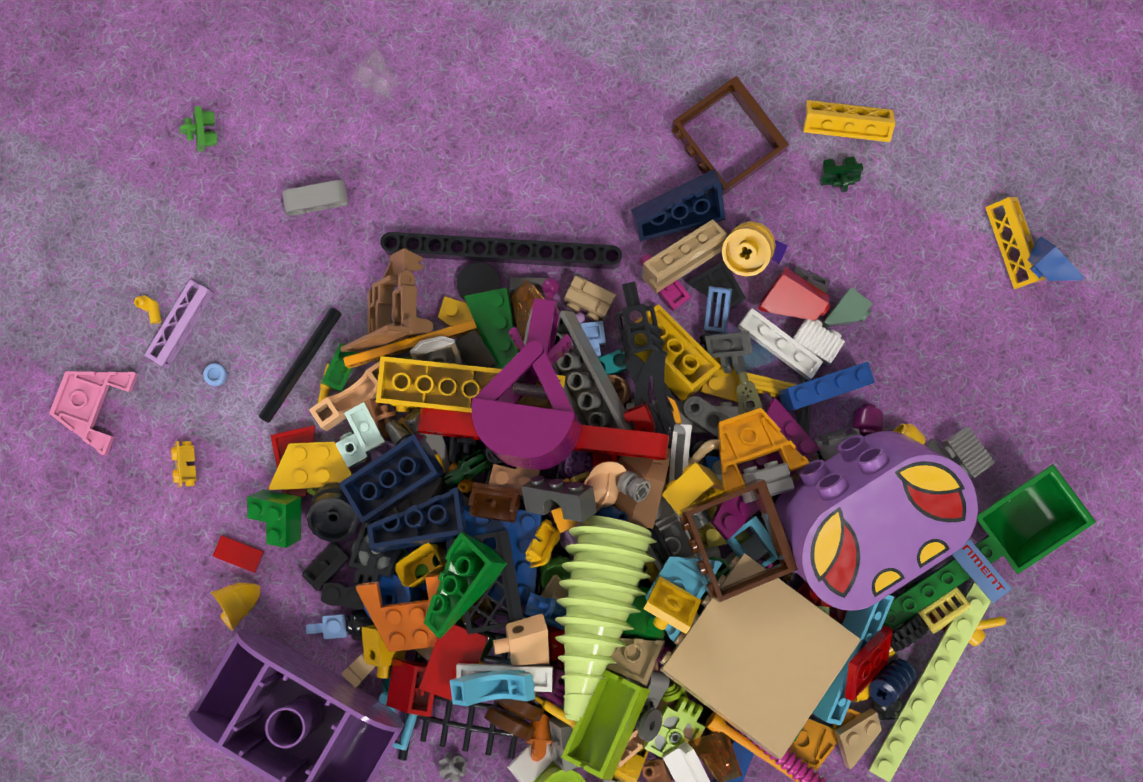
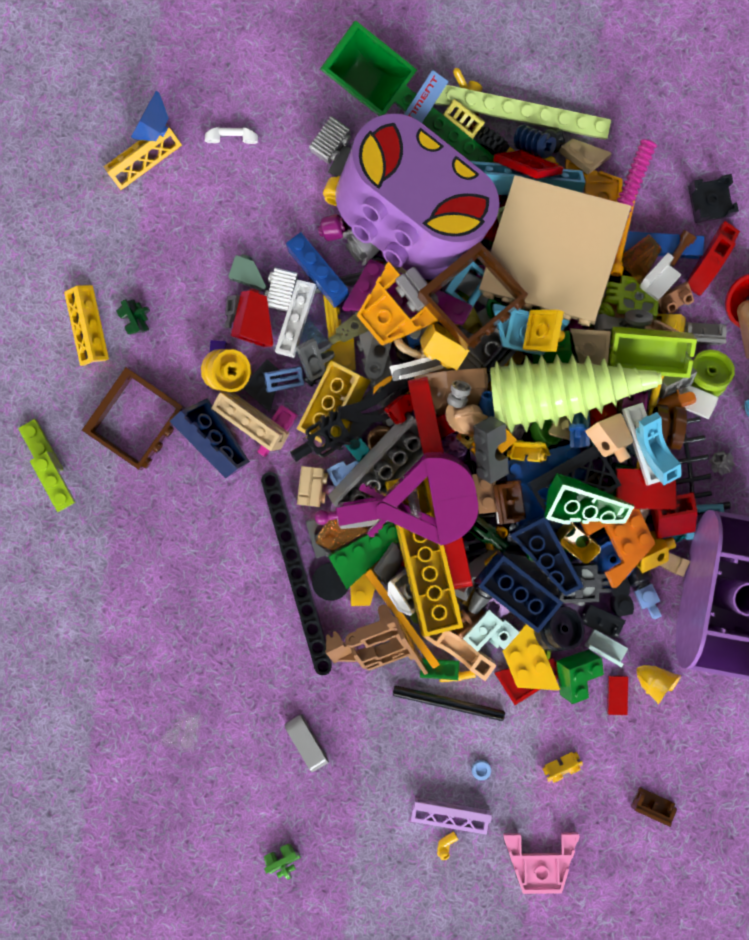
camera: 110 degrees left, 5 degrees up
(101, 549) = (654, 806): none -> reddish brown hinge
(294, 559) = (606, 647): none -> light aqua panel
(710, 27) = (47, 465): none -> lime bracket
(1014, 327) = (214, 134): none -> white bar

